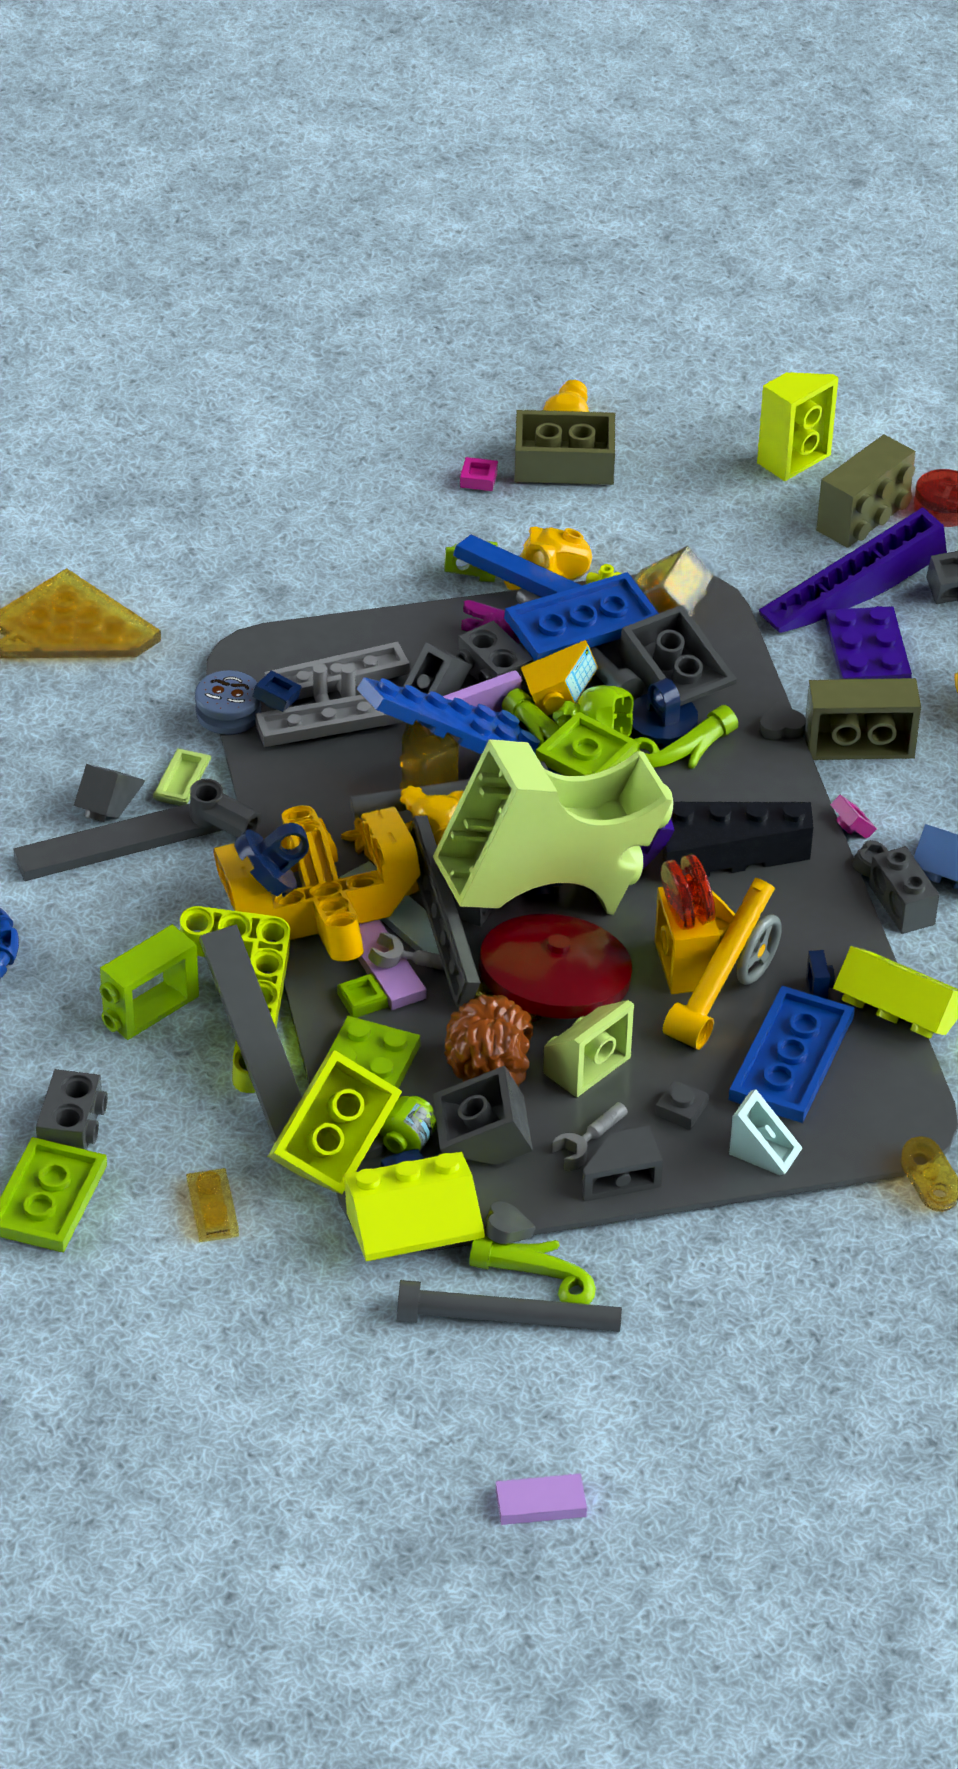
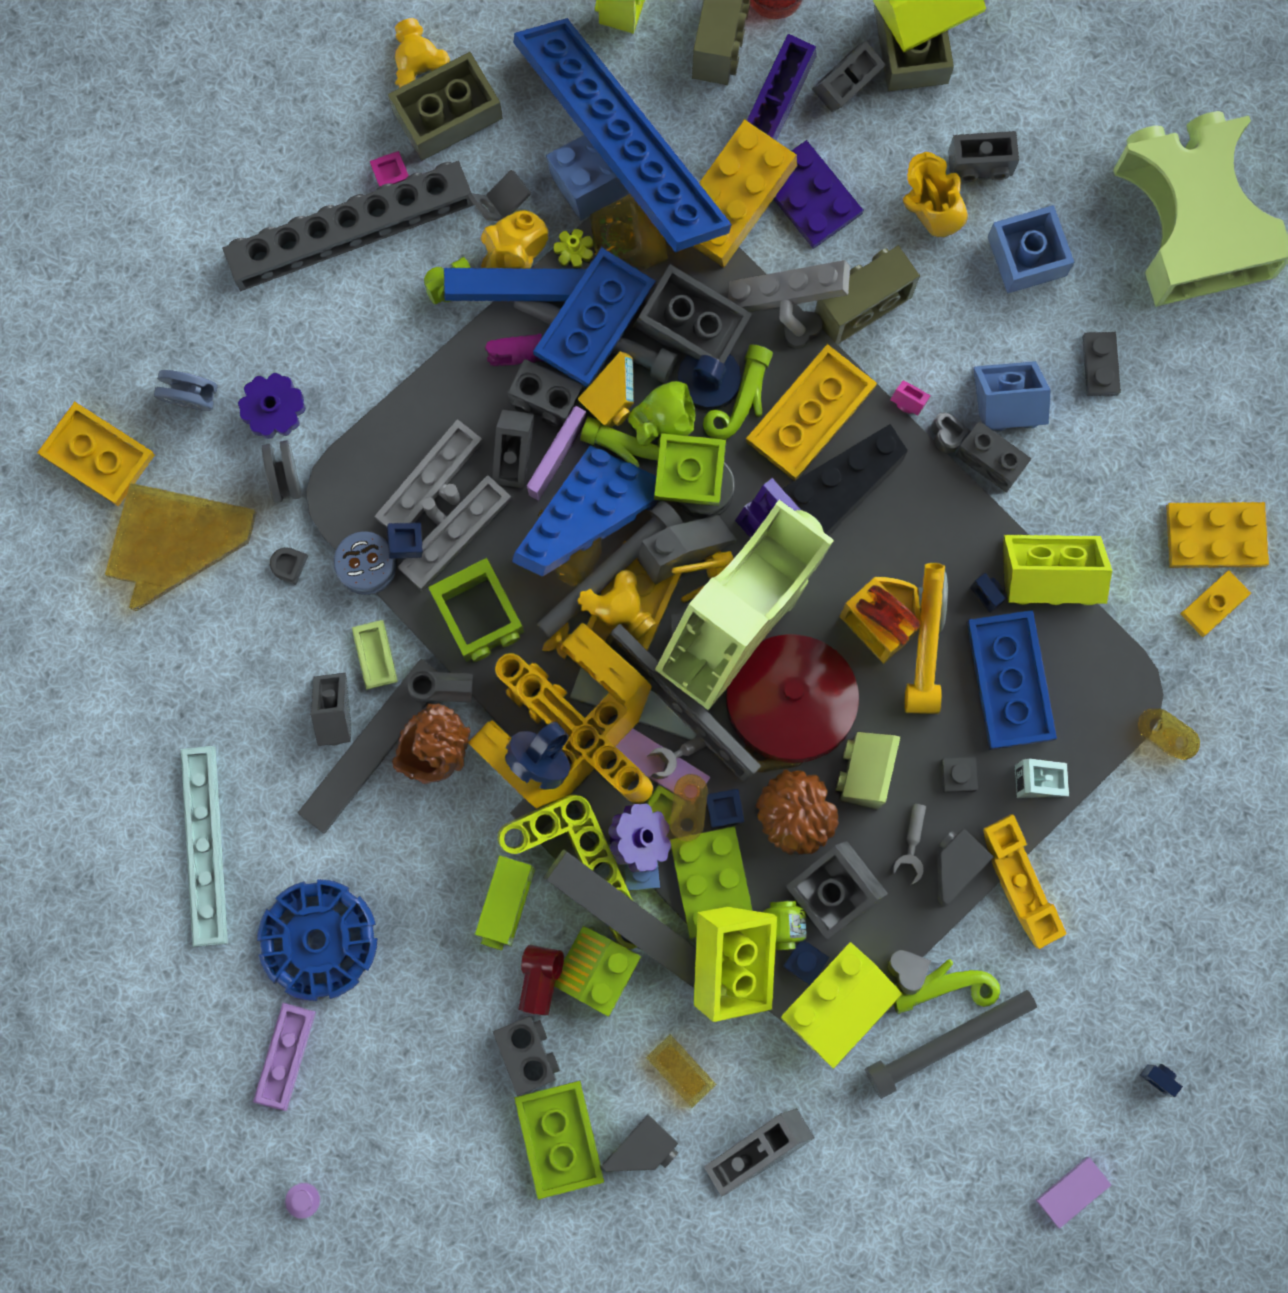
camera: 30 degrees left, 35 degrees up
(54, 540) = (96, 453): none -> yellow plate
(119, 1236) = (643, 1149): none -> dark grey slope
(138, 1058) = (541, 970): none -> dark red piece
(158, 685) = (288, 564): none -> dark grey tile
(169, 526) = (186, 390): none -> sand blue head
(180, 841) = (432, 745): none -> dark orange hair
(198, 1091) = (597, 970): none -> lime slope
(206, 611) = (281, 475): none -> dark grey head
(236, 566) = (276, 393): none -> dark purple plant
(242, 1295) = (759, 1151): none -> dark grey slope
(301, 1031) = (642, 880): none -> medium blue plate
(308, 751) = (462, 582): none -> lime window
(317, 985) = (639, 838): none -> plant
(379, 996) = (690, 808): none -> clear yellow plate
(410, 490) = (340, 240): none -> dark grey brick
(421, 1017) = (725, 808): none -> dark blue plate
(582, 522) = (502, 198): none -> dark grey bracket
(659, 532) = (584, 177): none -> medium blue brick
(682, 1210) = (1020, 882): none -> yellow slope
(709, 511) = (622, 135): none -> blue plate
(709, 1444) = (1162, 1079): none -> dark blue plate
(750, 774) = (811, 412): none -> yellow plate
(786, 596) = (744, 184): none -> yellow brick
(795, 668) = (791, 288): none -> light grey plate

